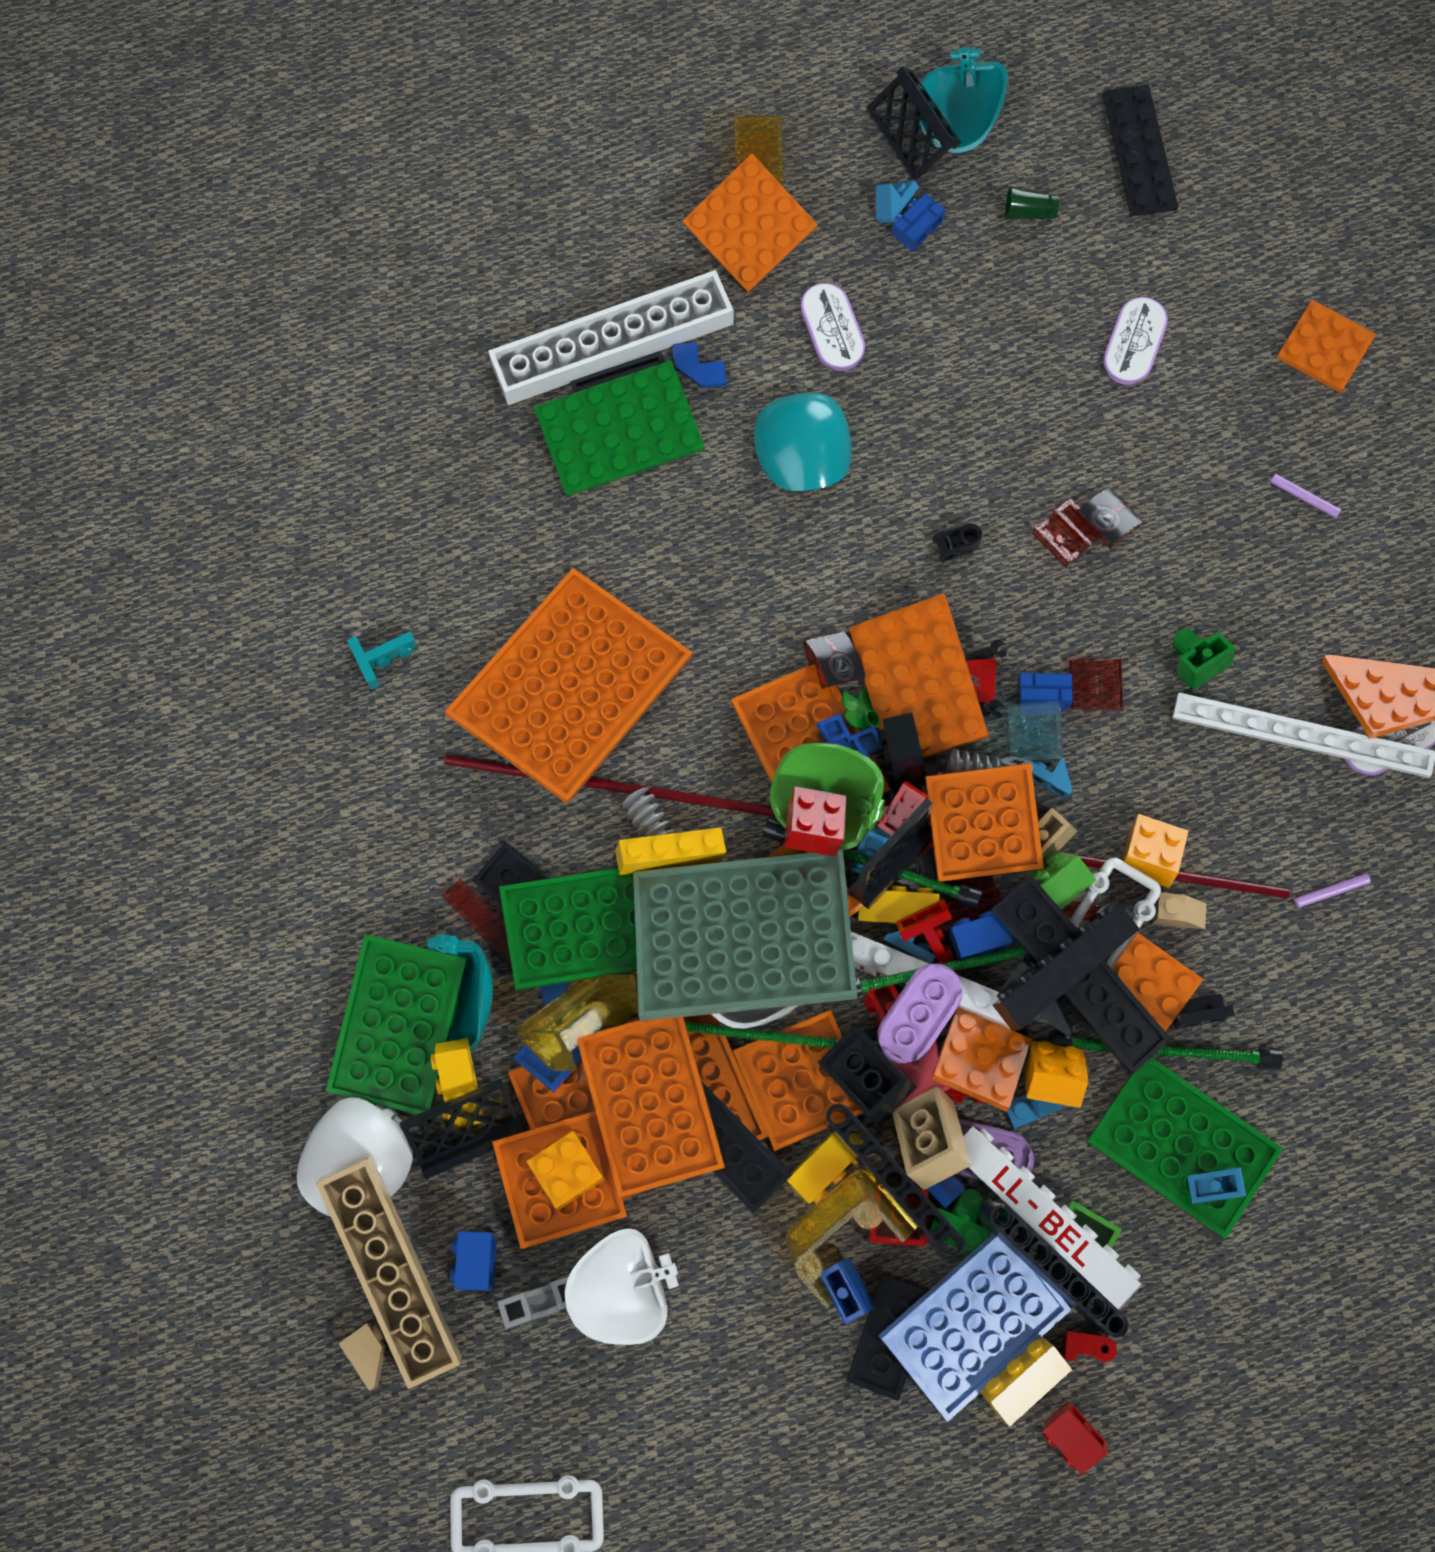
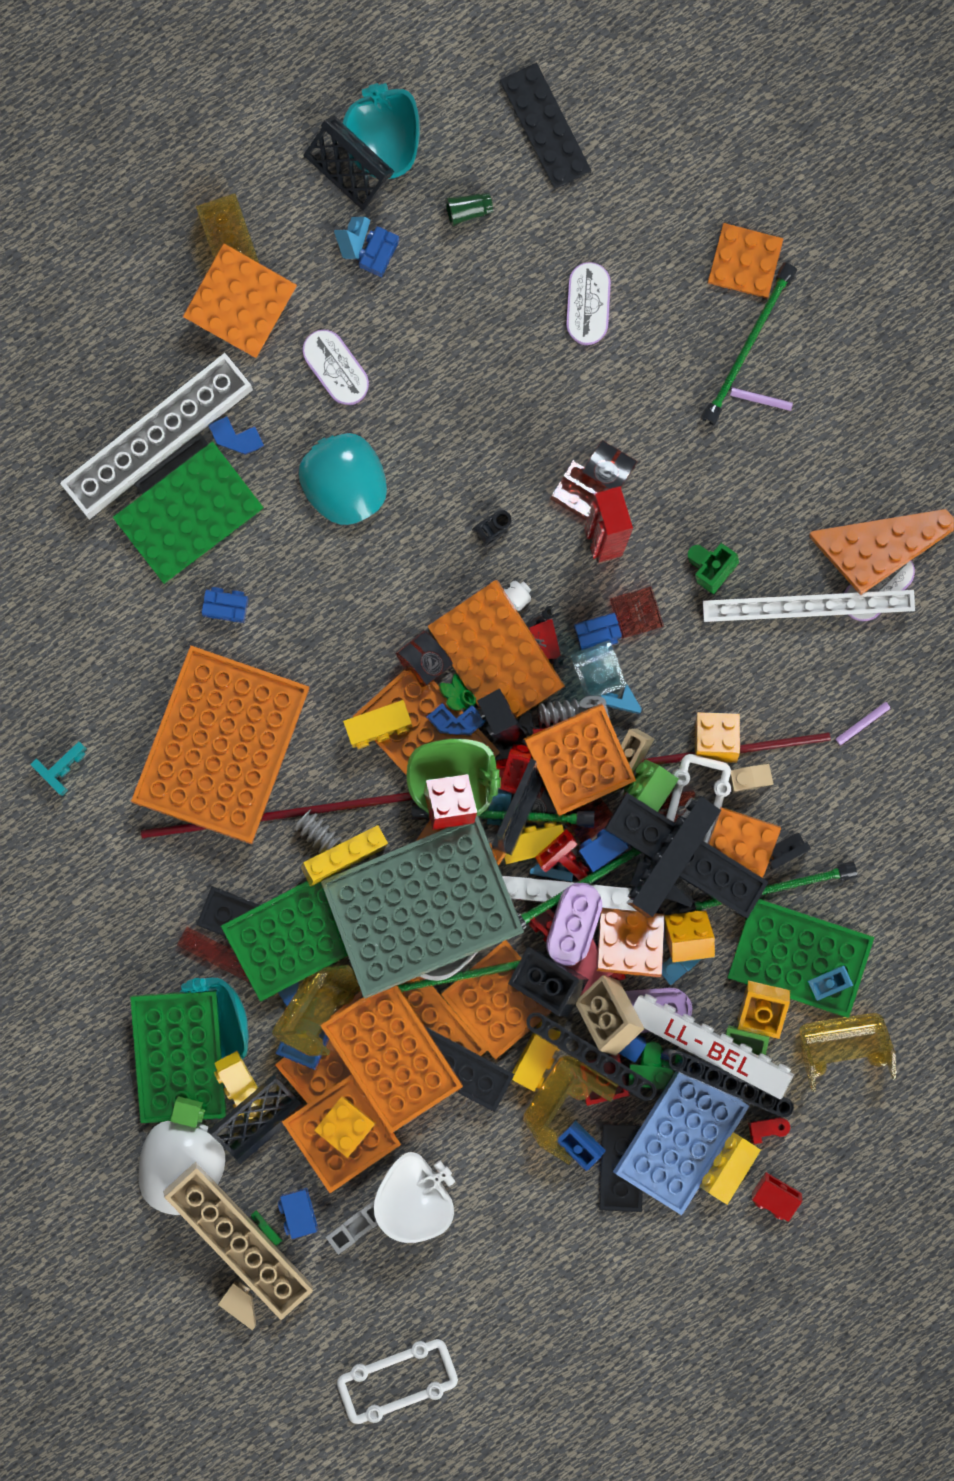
camera: 25 degrees left, 10 degrees up
(384, 1093) = (187, 1112): none -> bright green brick
(431, 1270) = (266, 1228): none -> green tile
(626, 537) = (225, 605): none -> blue brick
(758, 714) = (378, 724): none -> yellow brick
(965, 622) = (518, 594): none -> white head
(1099, 554) = (608, 525): none -> red brick
(1123, 1193) = (763, 1009): none -> light orange brick
(1216, 1267) = (846, 1040): none -> clear yellow windscreen
(1368, 372) = (784, 277): none -> green hose

